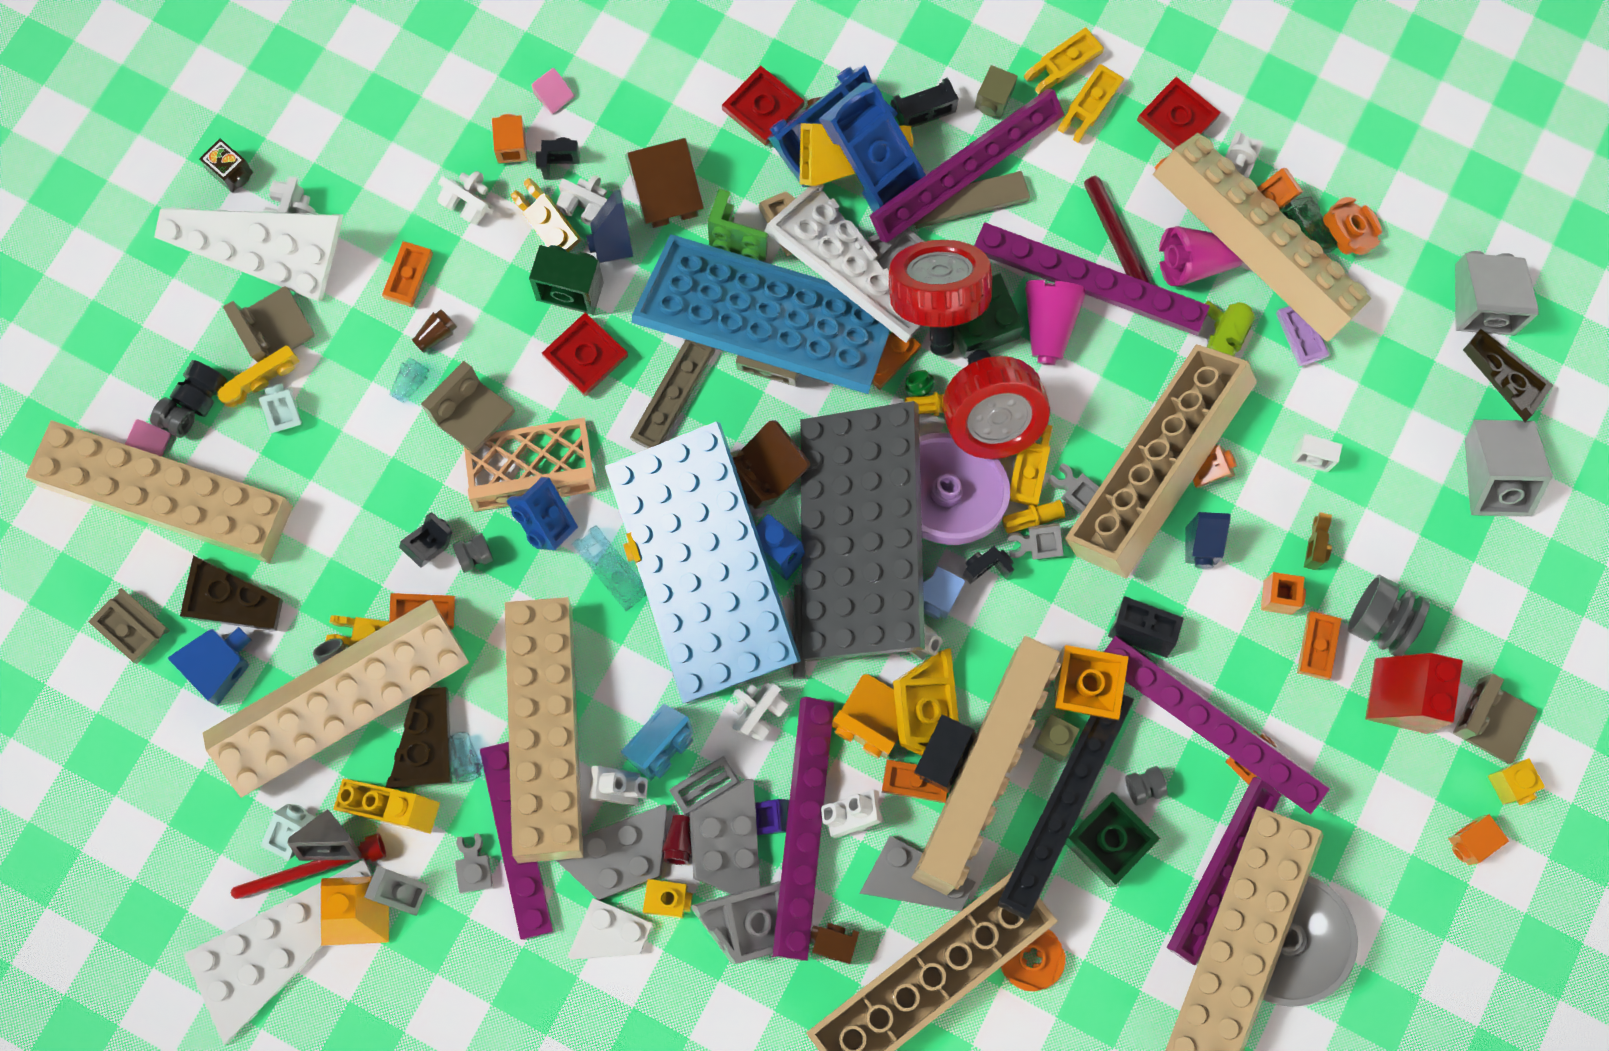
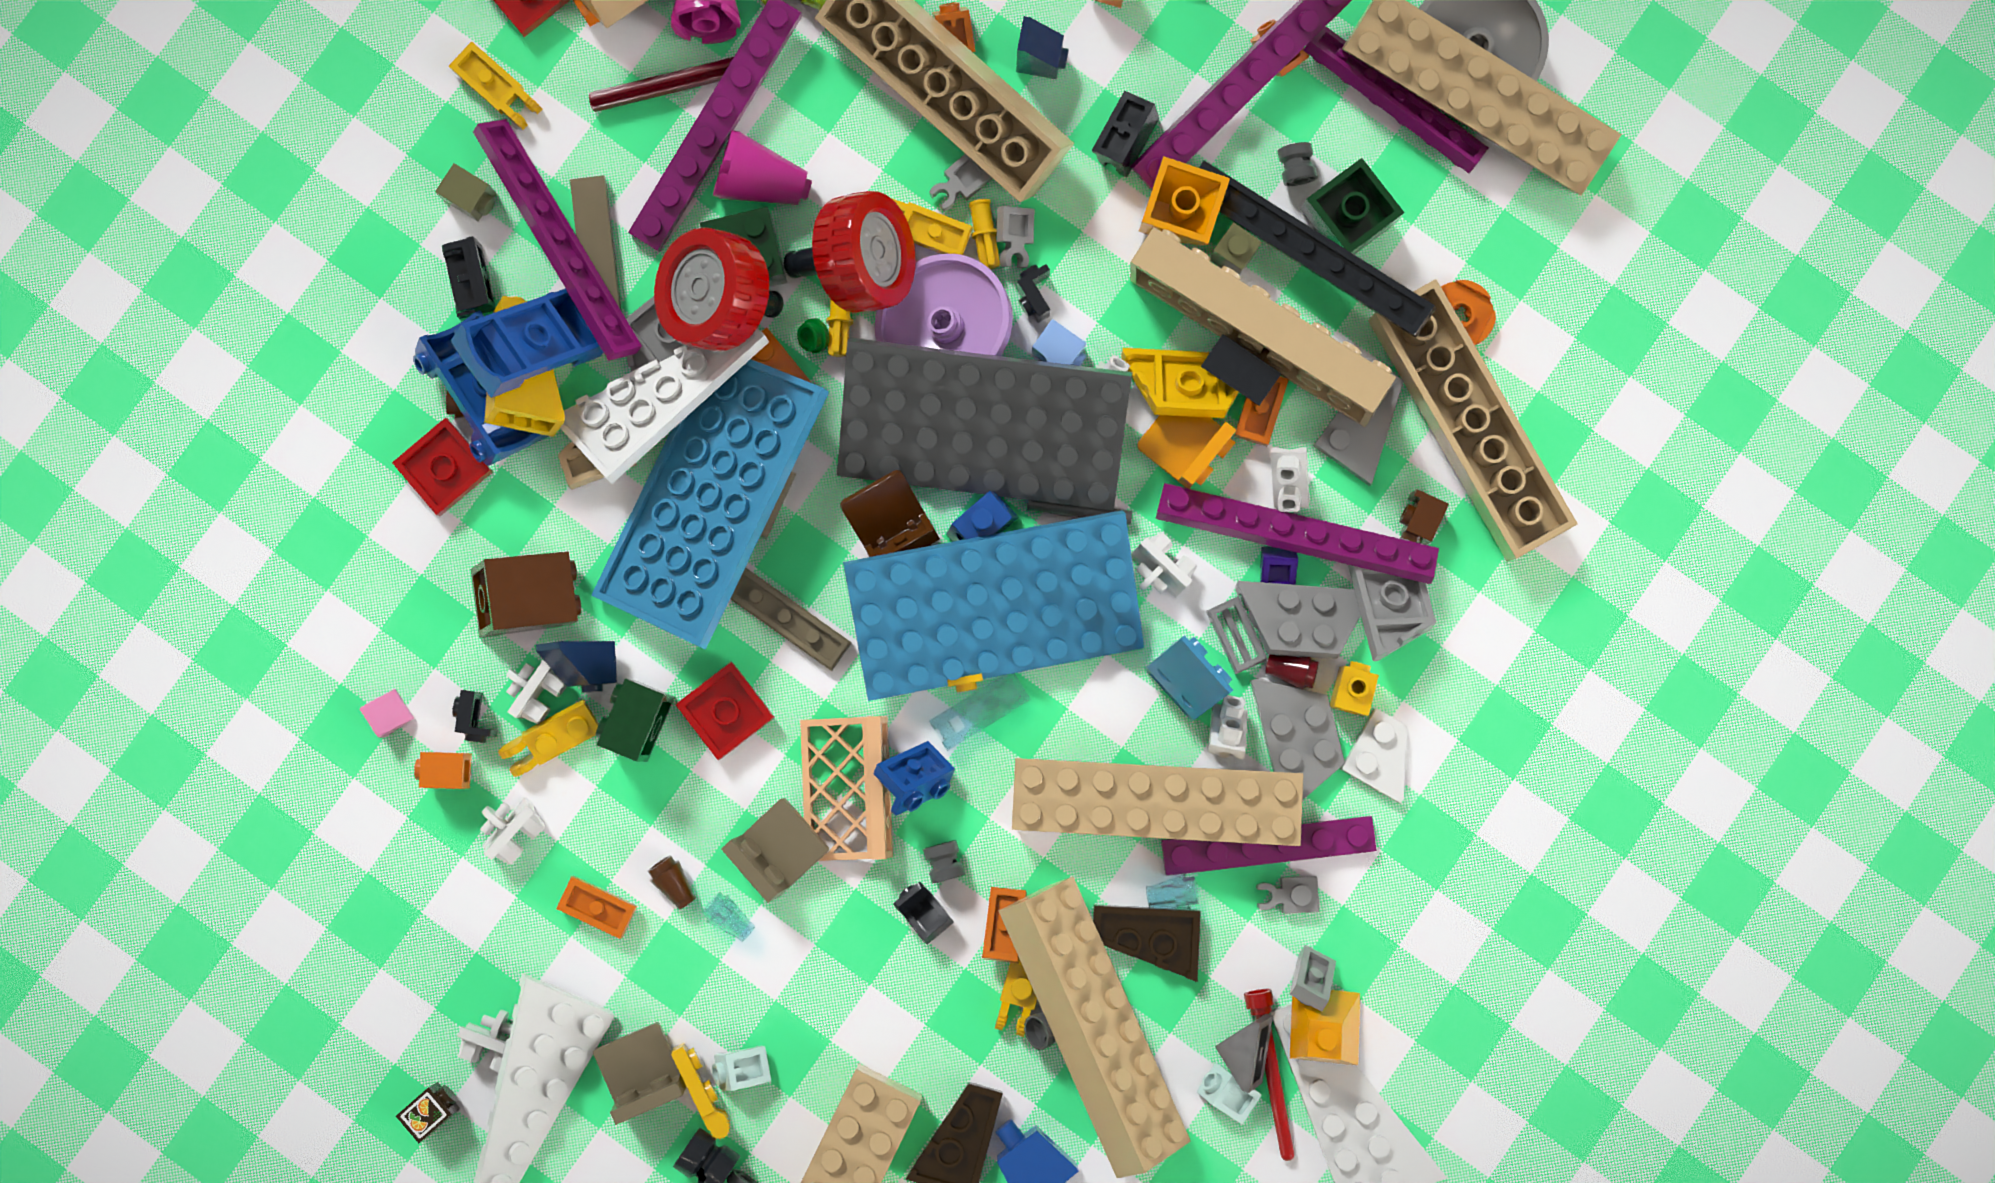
camera: 80 degrees left, 10 degrees up
(387, 805) = (1216, 982): yellow slope -> none
(731, 236) = (608, 529): bright green bracket -> none
(1065, 59) = (435, 104): yellow hinge -> none

